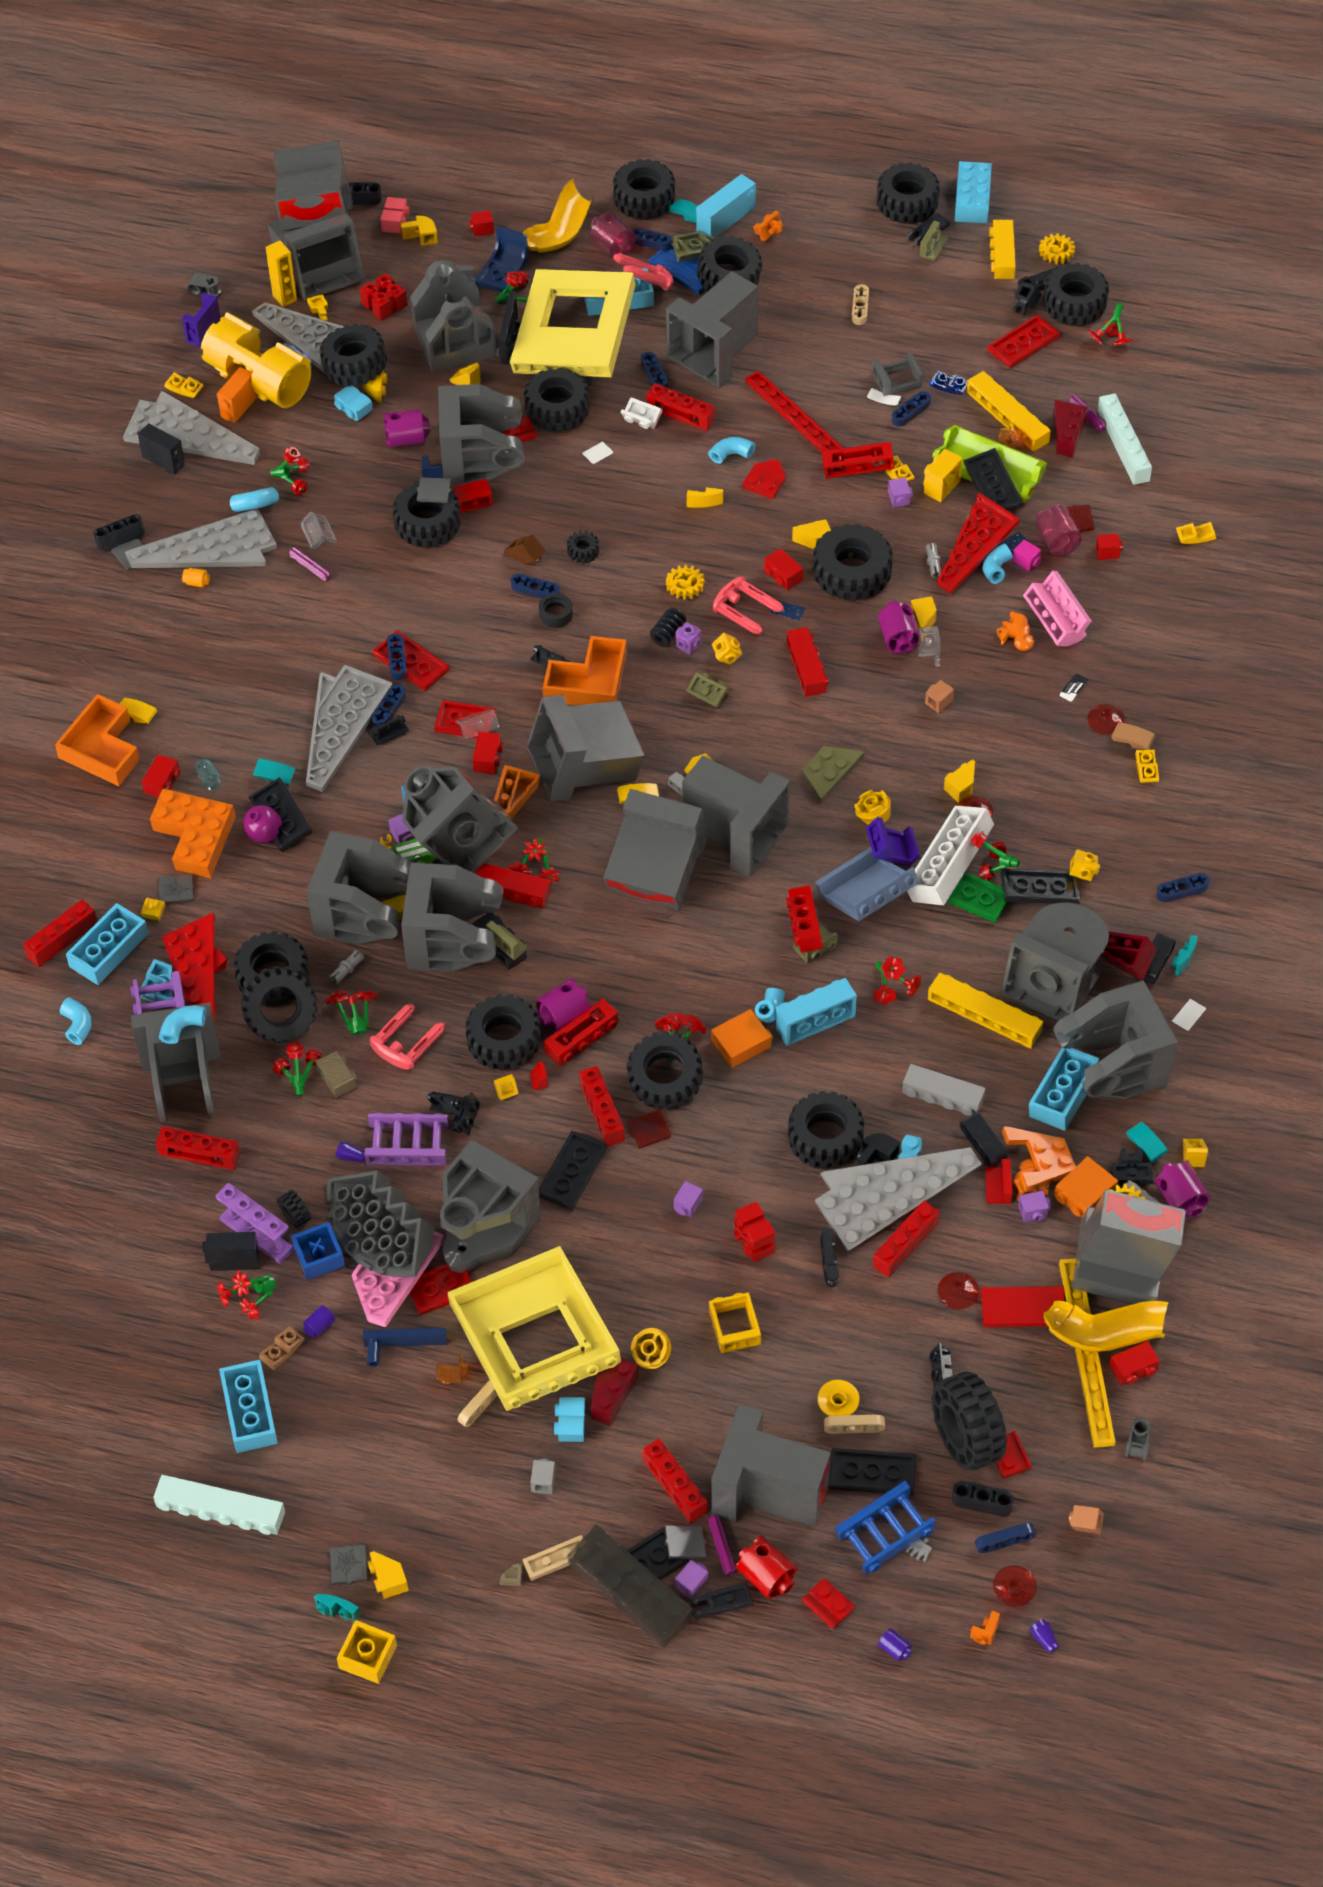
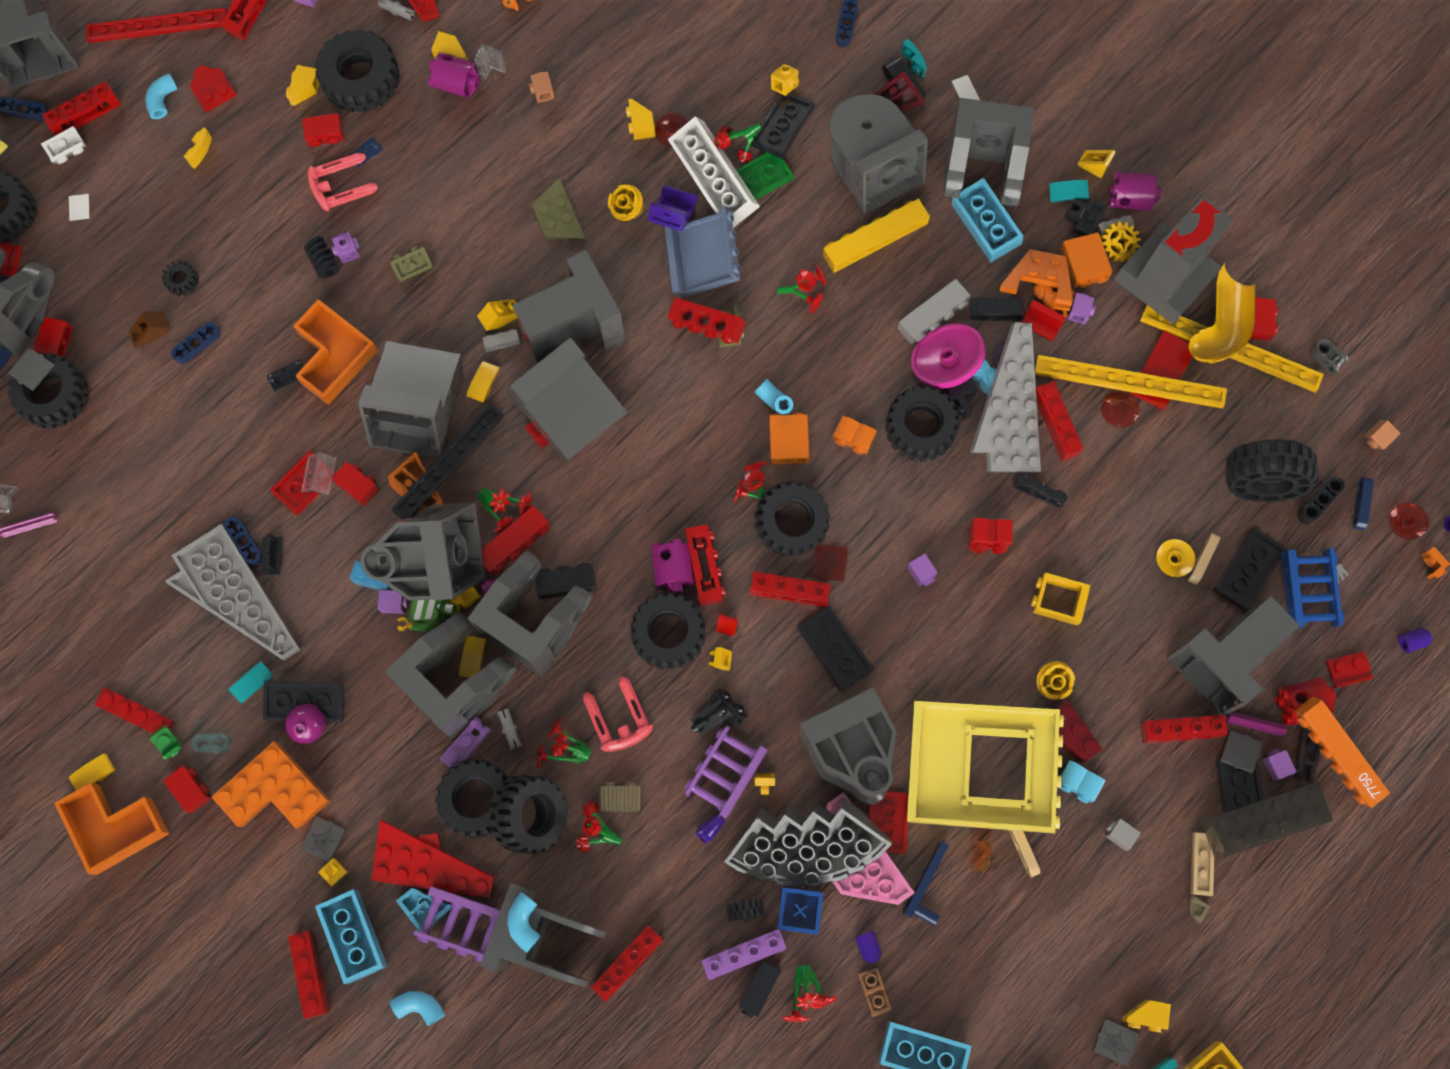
camera: 60 degrees left, 20 degrees up
(190, 742) = (166, 742): none -> green bracket
(201, 712) = (131, 711): none -> red plate
(317, 944) = (465, 743): none -> medium lavender plate
(396, 662) = (199, 510): dark blue beam -> none
(416, 1172) = (764, 780): none -> yellow tile
(421, 666) = (203, 494): red tile -> none
(506, 940) = (580, 577): olive bracket -> none
(547, 800) = (447, 463): none -> black plate
(555, 600) = (229, 328): black tyre -> none
(685, 582) = (279, 214): yellow gear -> none
(726, 648) = (379, 223): yellow brick -> none
(733, 1614) = (1342, 752): none -> orange brick
(780, 1086) = (854, 435): none -> orange brick
(806, 661) = (435, 168): red brick -> none
(815, 1011) = (802, 364): medium azure brick -> none
(903, 1116) = (948, 356): none -> dark pink dish
(940, 1358) = (1179, 461): black hinge -> none
(987, 1279) = (1131, 381): none -> yellow plate

